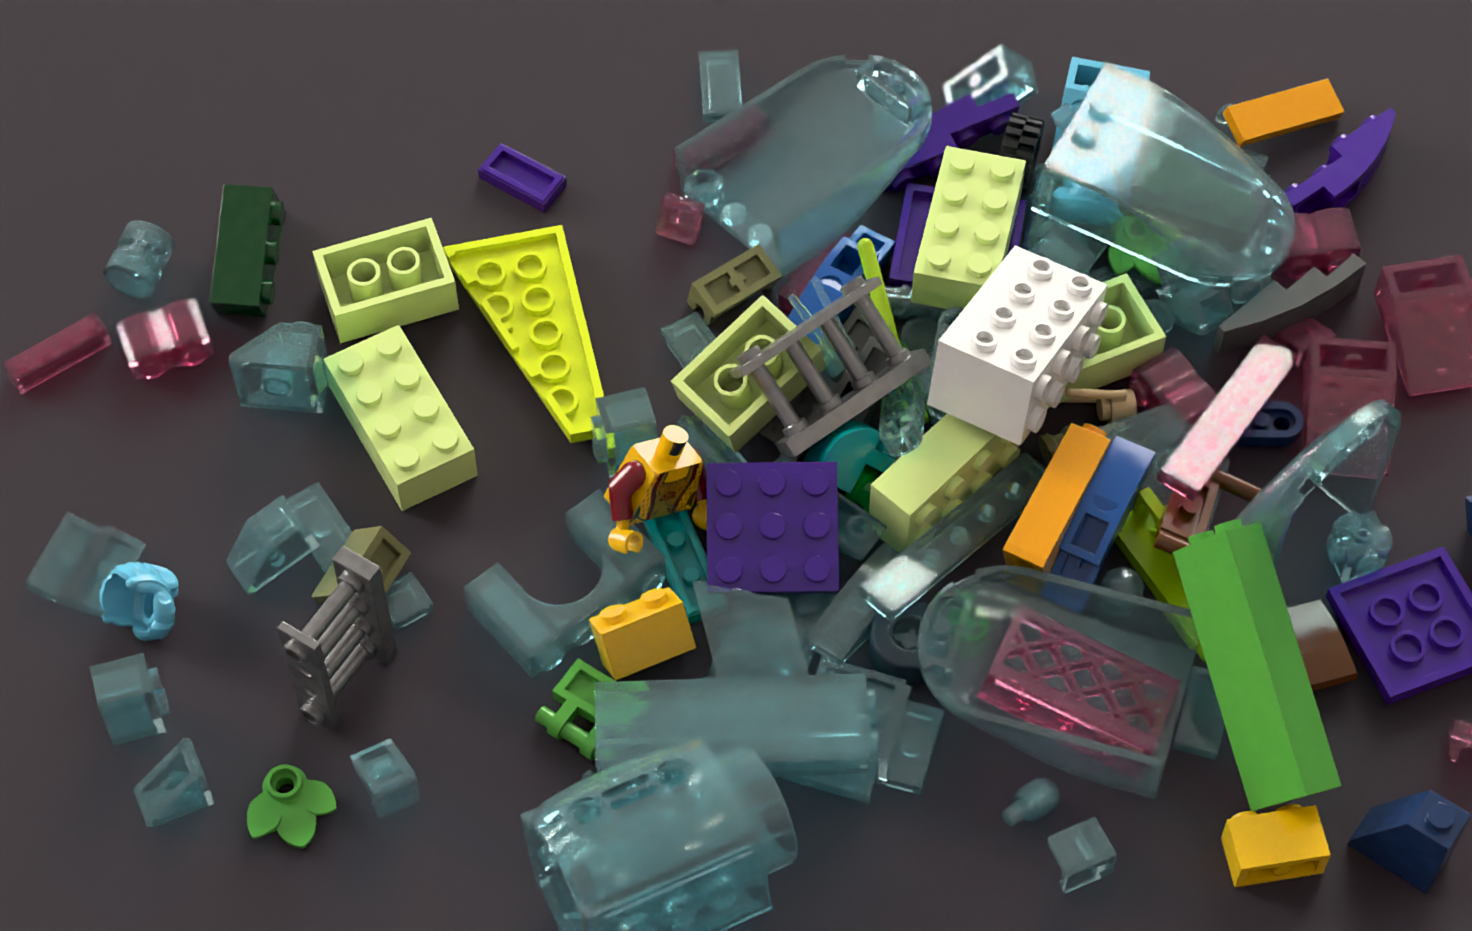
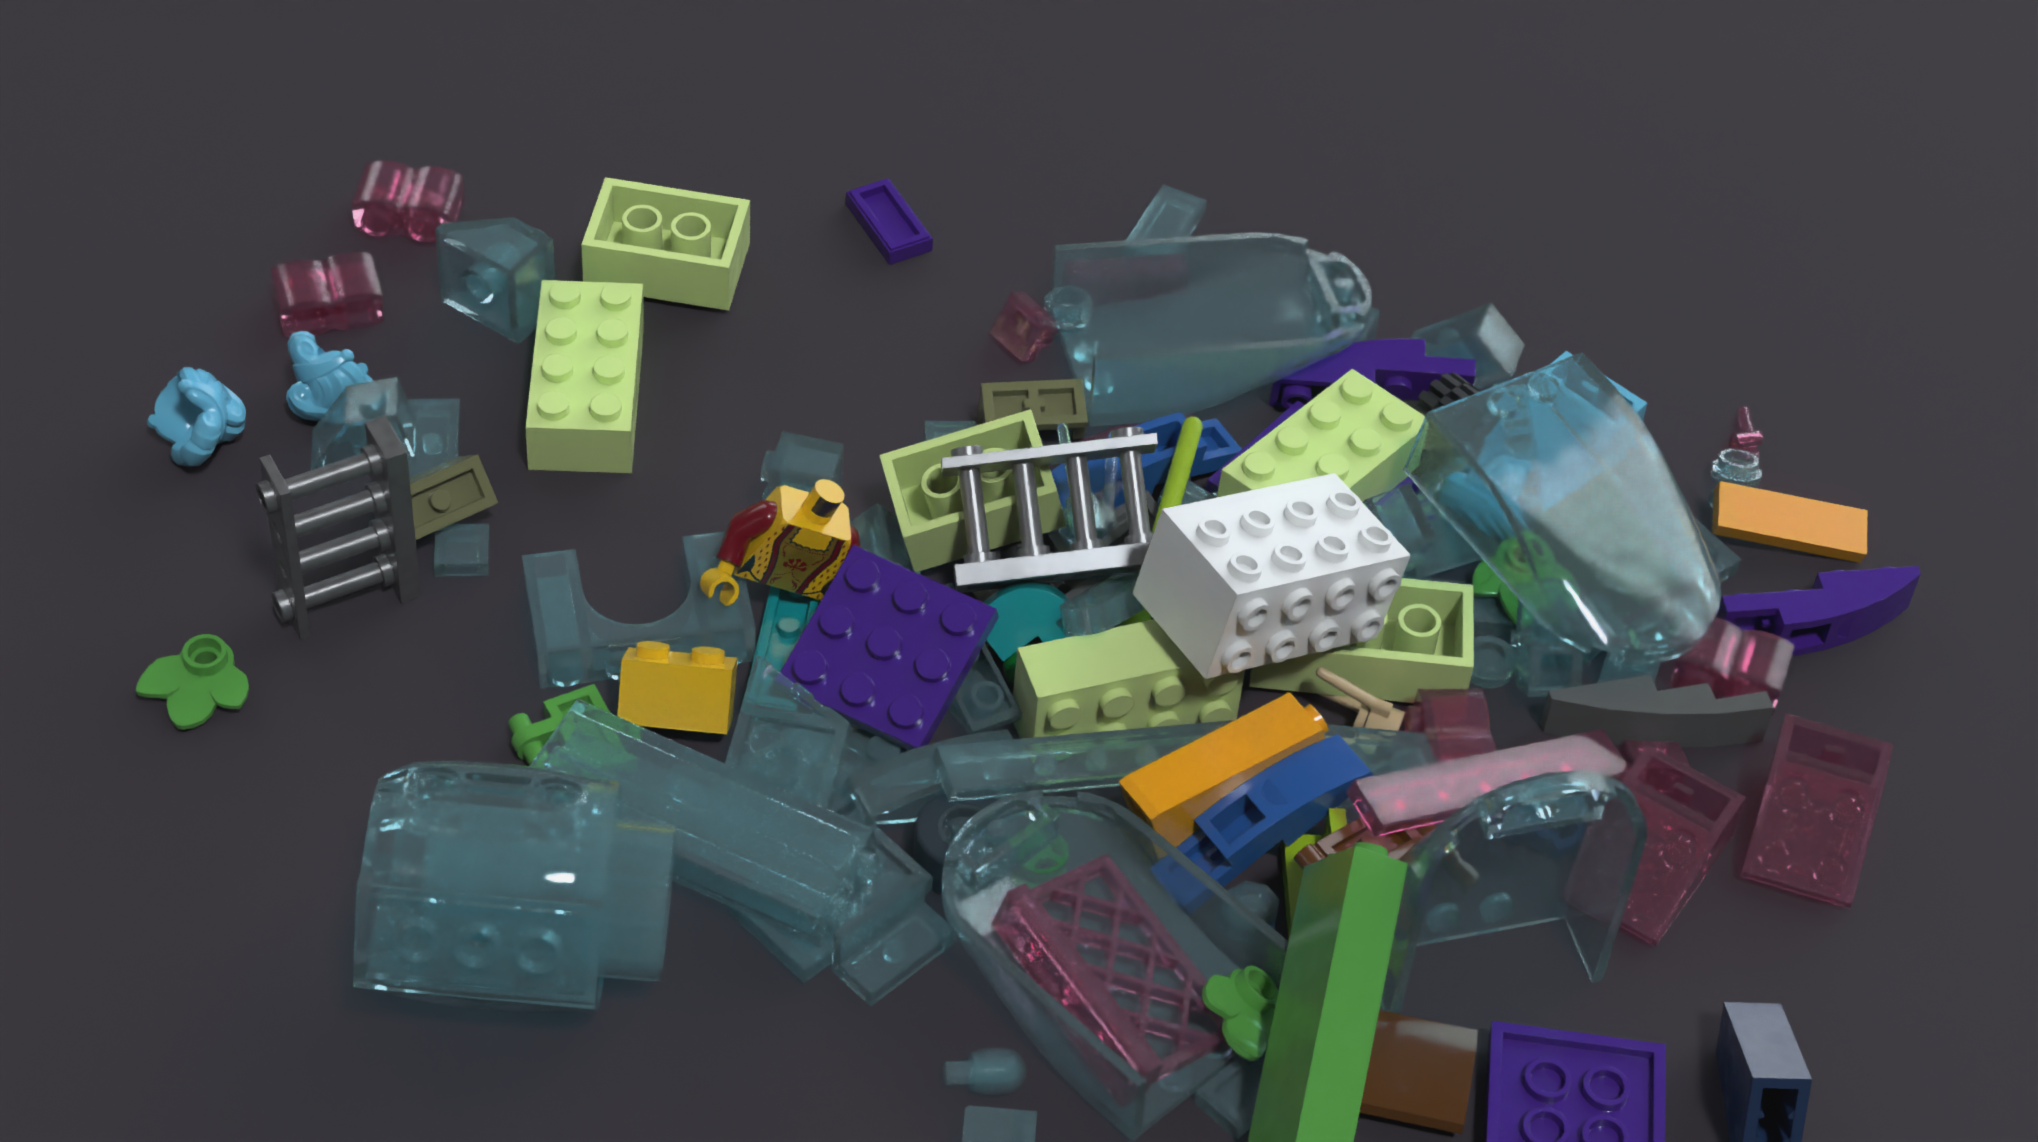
camera: 25 degrees right, 10 degrees down
(57, 353) = (296, 169): clear pink piece -> none
(80, 561) = (154, 357): clear light blue slope -> none
(130, 698) = (107, 496): clear light blue brick -> none
(139, 259) = (437, 119): clear light blue wheel -> none
(159, 446) = (327, 294): none -> clear pink brick
(173, 786) = (99, 605): clear light blue slope -> none
(214, 524) = (319, 376): none -> medium azure hair
(247, 250) = (549, 154): dark green wedge -> none
(386, 777) = (306, 703): clear light blue slope -> none
(535, 308) = (804, 343): neon yellow wing -> none
(1173, 664) = (1246, 1005): none -> bright green plate
(1216, 62) = (1748, 438): none -> clear pink hand
(1224, 88) = (1737, 467): none -> clear light blue plate
(1358, 545) = (1561, 990): clear light blue brick -> none

